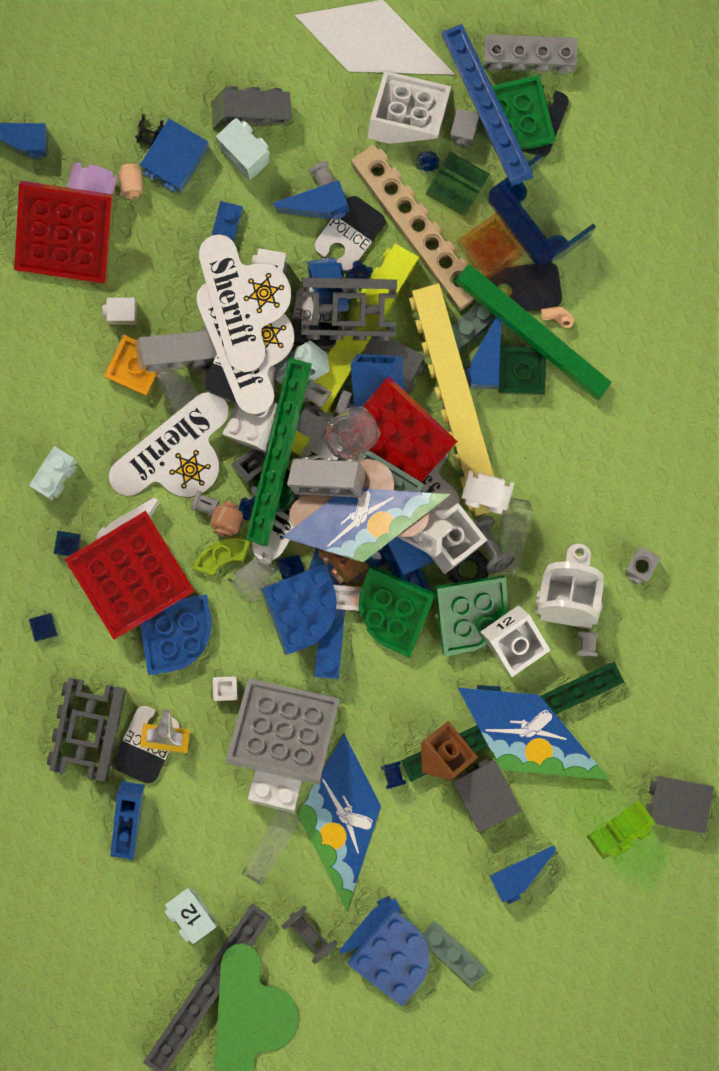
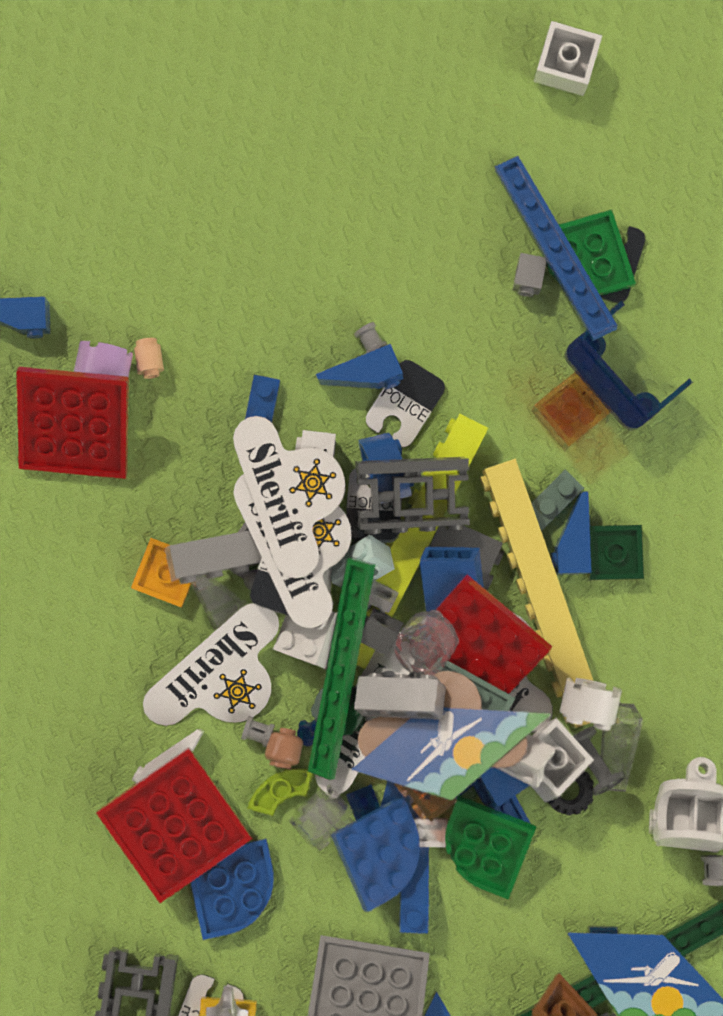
camera: 15 degrees left, 0 degrees up
(43, 627) = (76, 888): clear blue plate -> none
(53, 473) = (77, 707): light aqua brick -> none
(66, 543) = (98, 788): plate -> none
(120, 311) = (145, 510): white brick -> none
(139, 137) = (170, 310): black piece -> none
(174, 156) = (197, 326): blue brick -> none
(225, 688) = (294, 949): white plate -> none
(243, 149) = (277, 313): light aqua brick -> none
(249, 465) = (308, 683): dark grey slope -> none
(252, 106) = (283, 264): dark grey wedge -> none
(344, 402) = (413, 604): light grey plate -> none
(359, 267) = (418, 442): clear blue plate -> none
(372, 40) = (416, 179): white sticker -> none
(374, 158) = (431, 315): tan brick -> none
(407, 109) = (463, 257): white slope -> none
(428, 161) = (490, 315): plate -> none
(457, 184) = (525, 339): clear green slope -> none
(467, 610) = (577, 843): green plate -> none
(515, 641) = (632, 874): white brick -> none
(530, 53) = (599, 185): light grey brick -> none
(532, 285) = (618, 455): black piece -> none
(533, 332) = (625, 507): green tile -> none
(559, 314) = (653, 484): light nougat arm -> none

